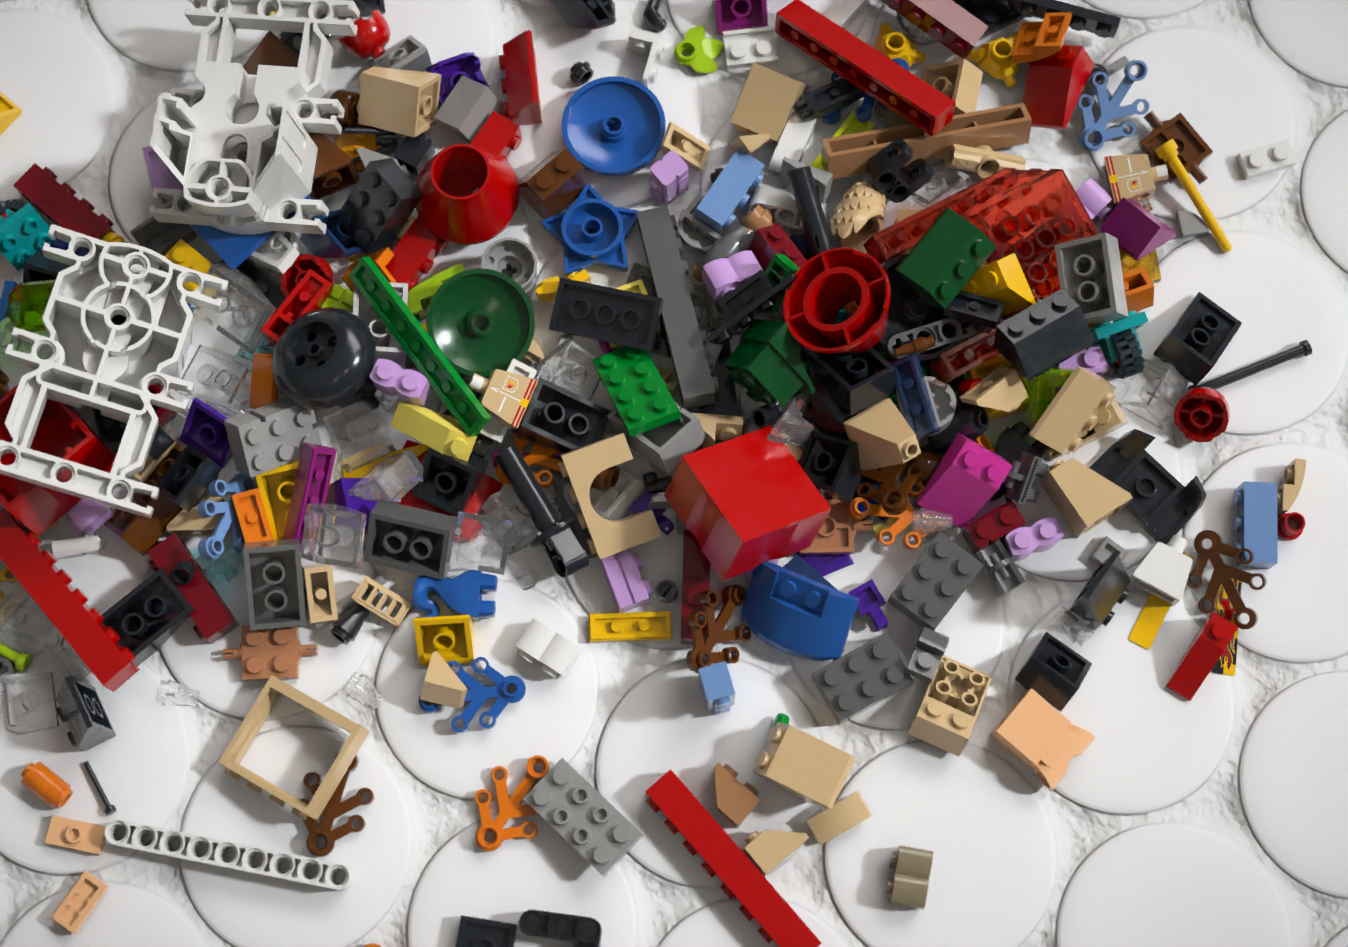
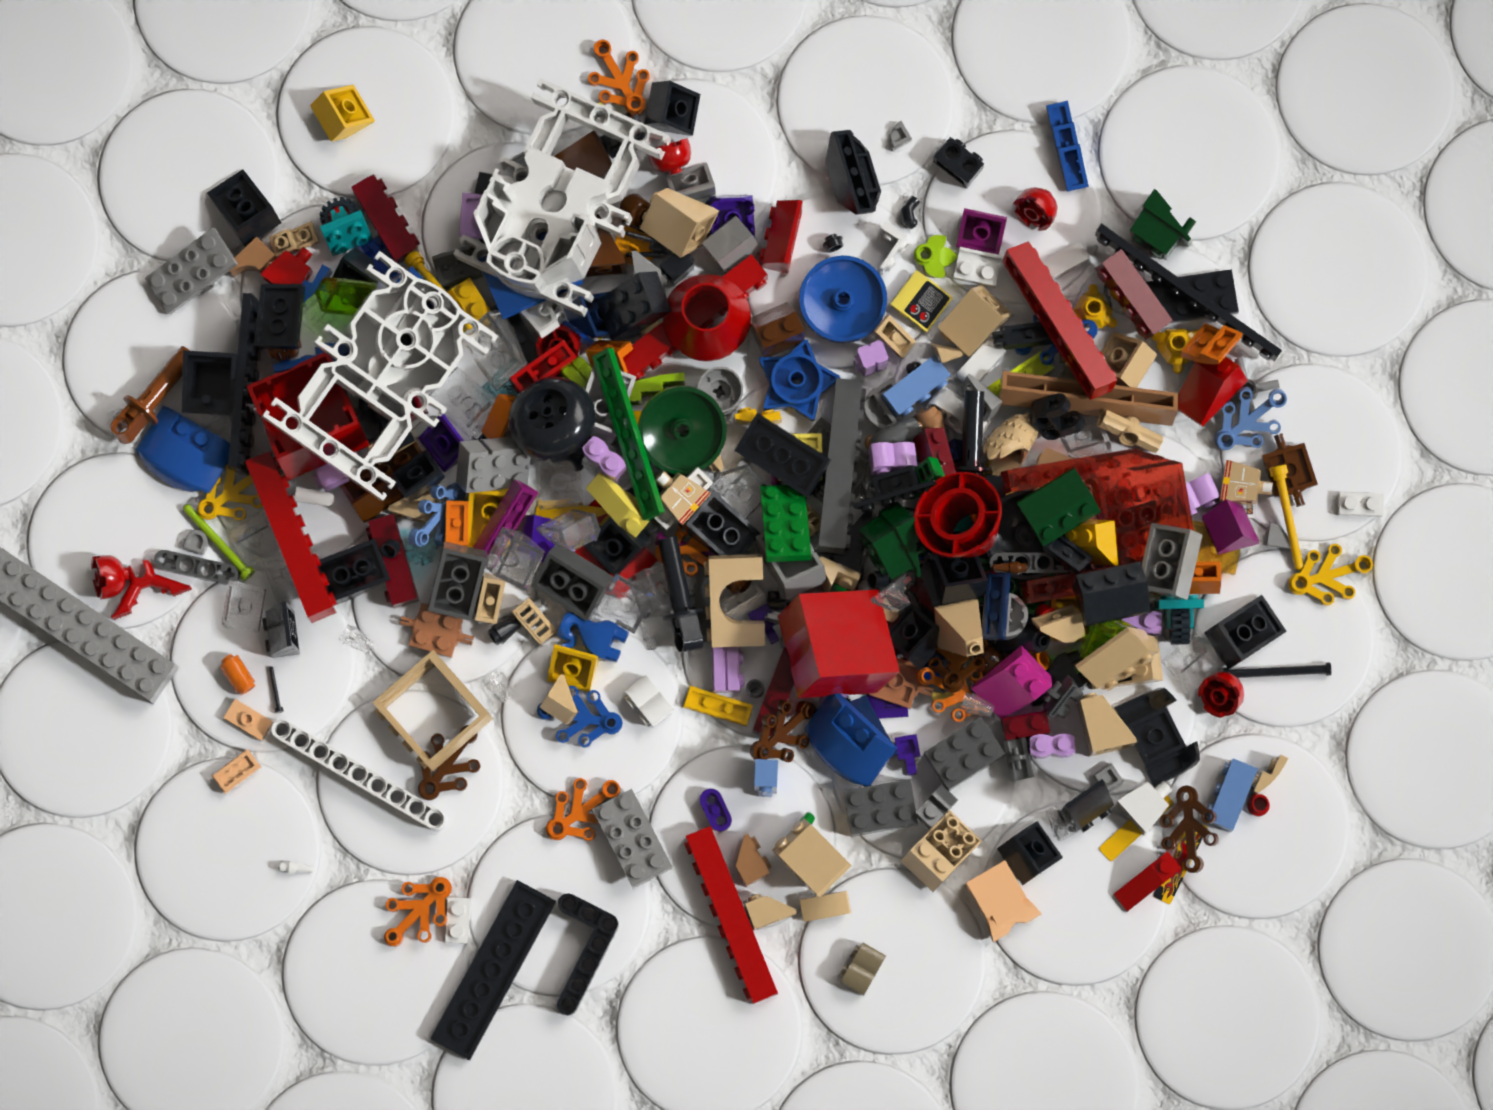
camera: 20 degrees right, 5 degrees up
(337, 263) = (583, 338): none -> clear blue piece
(670, 748) = (715, 810): none -> dark purple plate
(700, 102) = (921, 301): none -> slope
(1262, 248) = (1327, 576): none -> yellow plant

